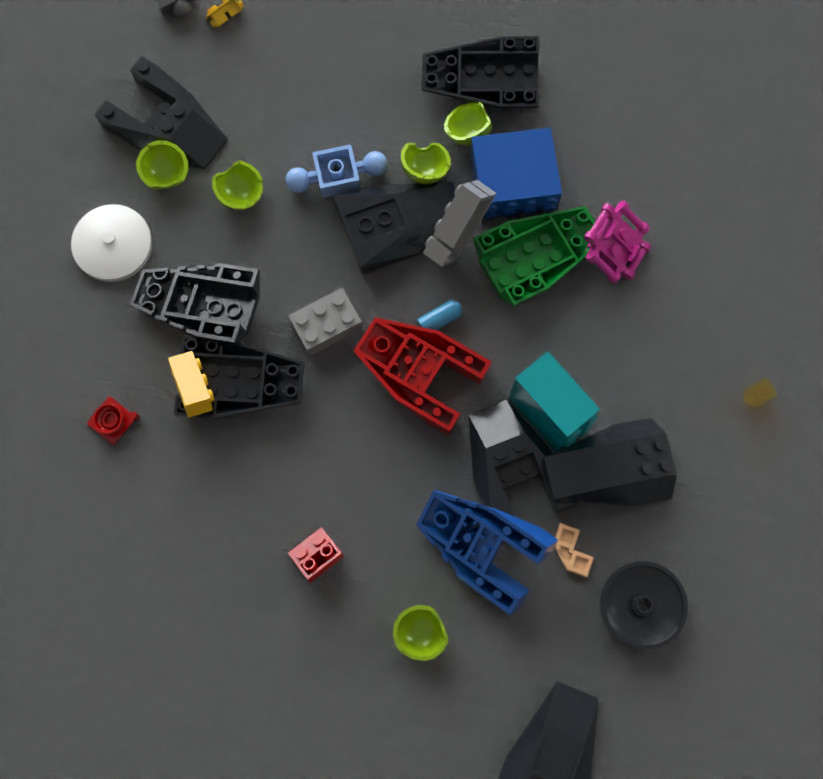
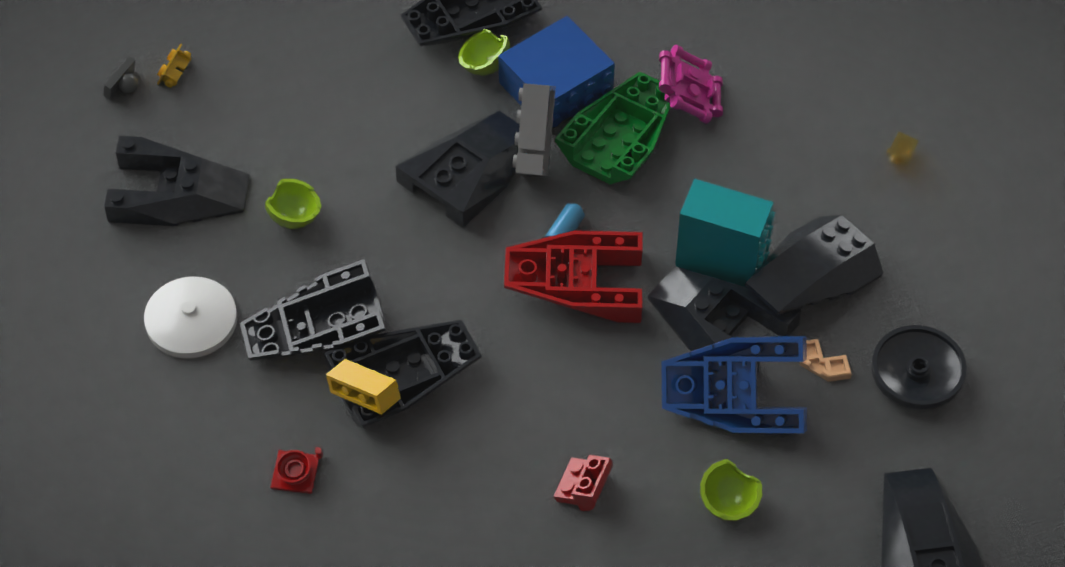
camera: 30 degrees left, 20 degrees down
(162, 165) = (204, 220): lime cylinder -> none
(325, 322) = (457, 280): light grey brick -> none
(340, 160) = (380, 149): light blue brick -> none
(425, 164) = (466, 104): lime cylinder -> none

